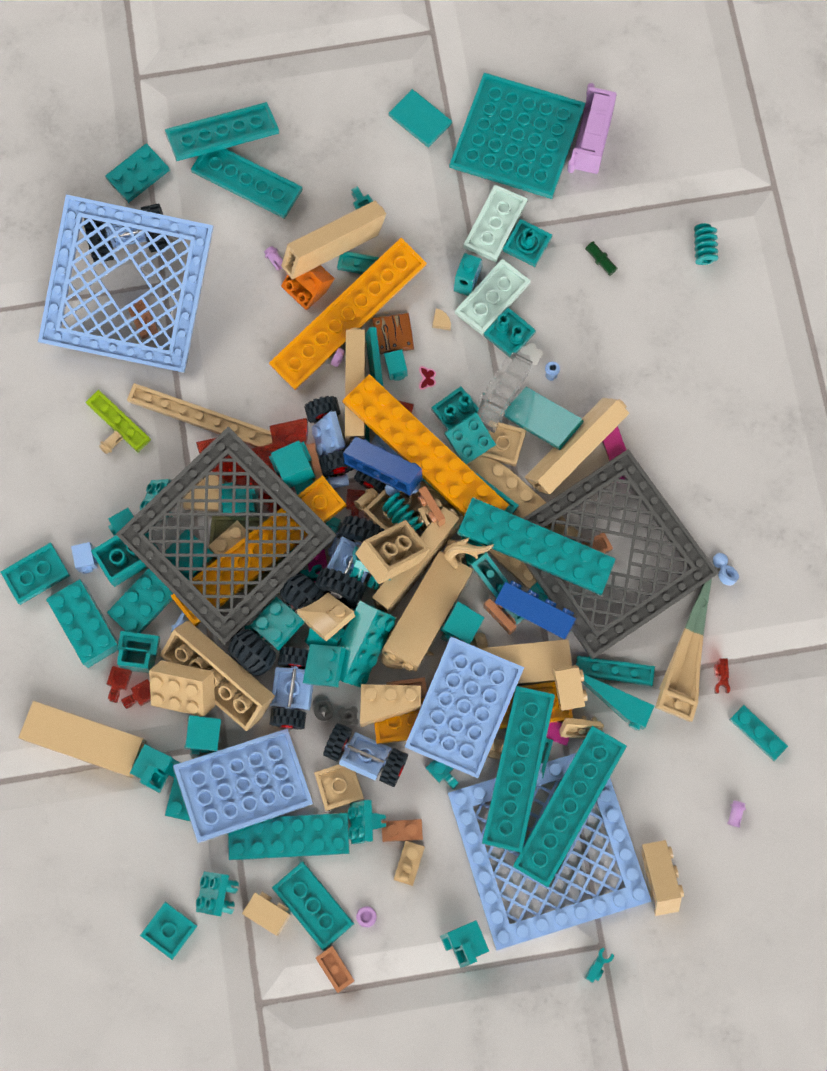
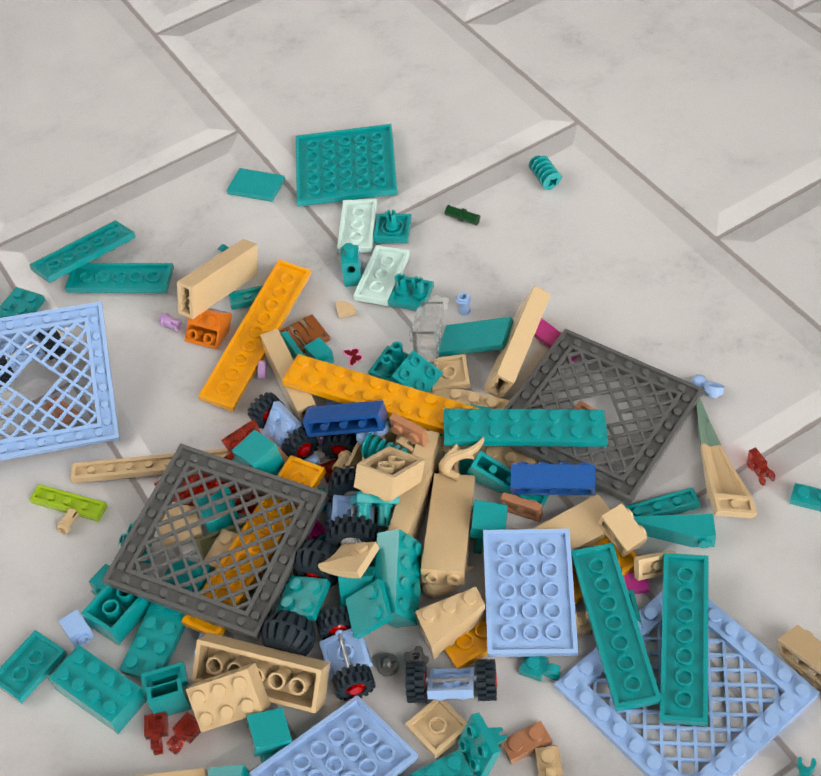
camera: 20 degrees left, 25 degrees down
(593, 130) = (407, 135): lavender container -> none

